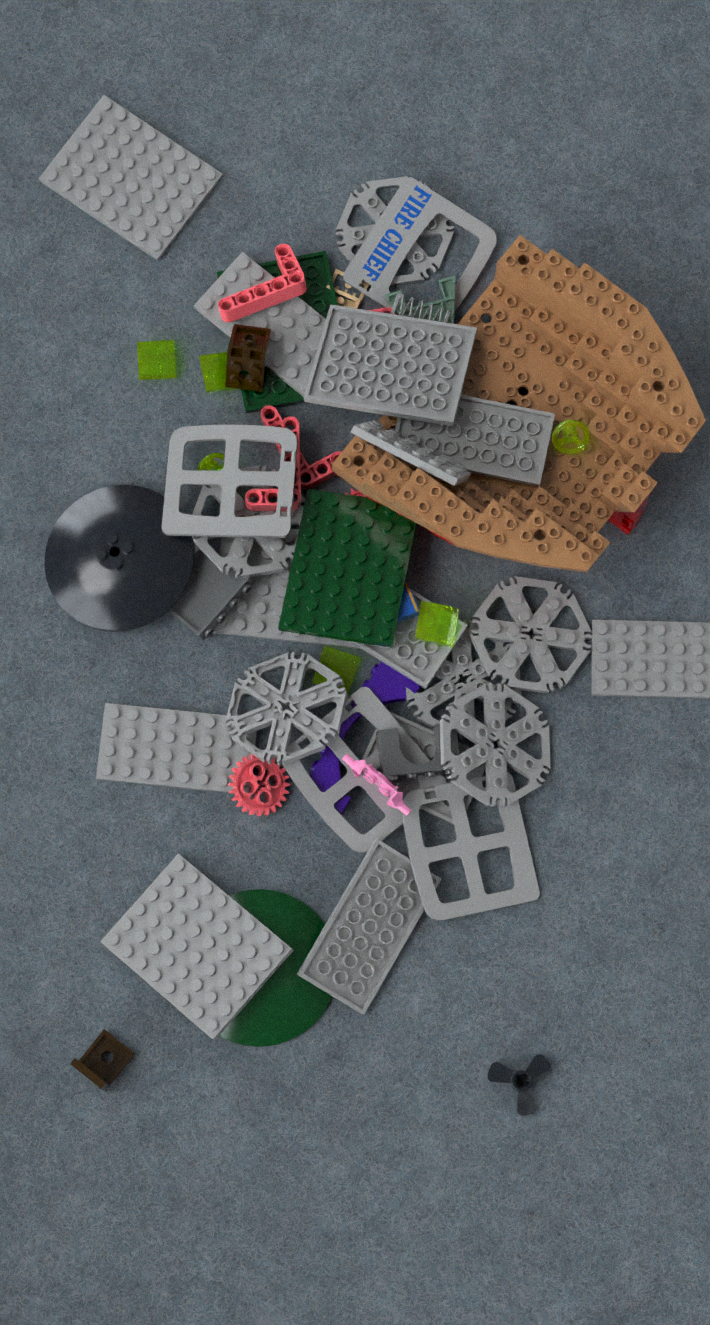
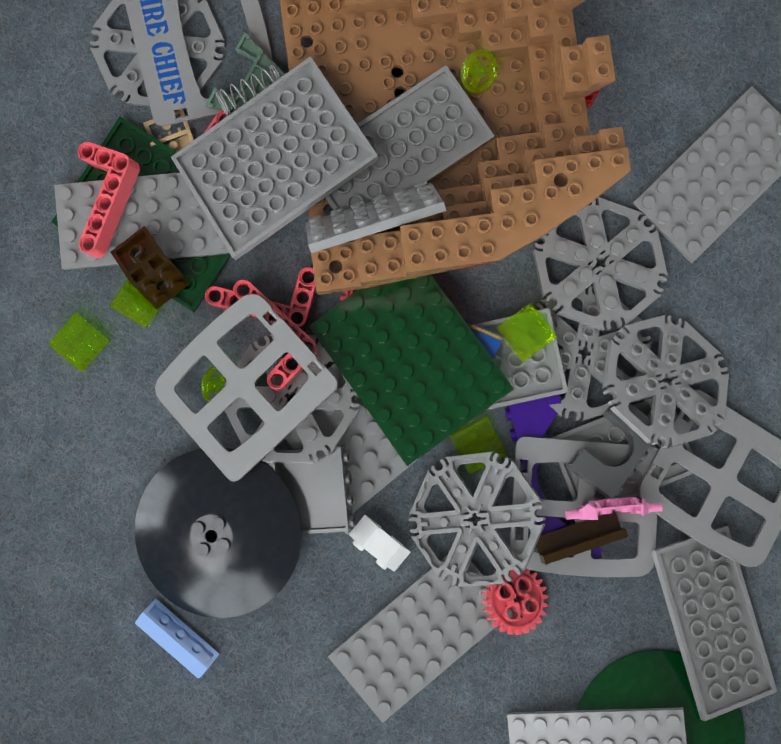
camera: 40 degrees left, 10 degrees up
(24, 597) = (177, 638): none -> light blue panel
(211, 665) = (380, 544): none -> white brick
(338, 783) = (579, 538): none -> dark brown panel

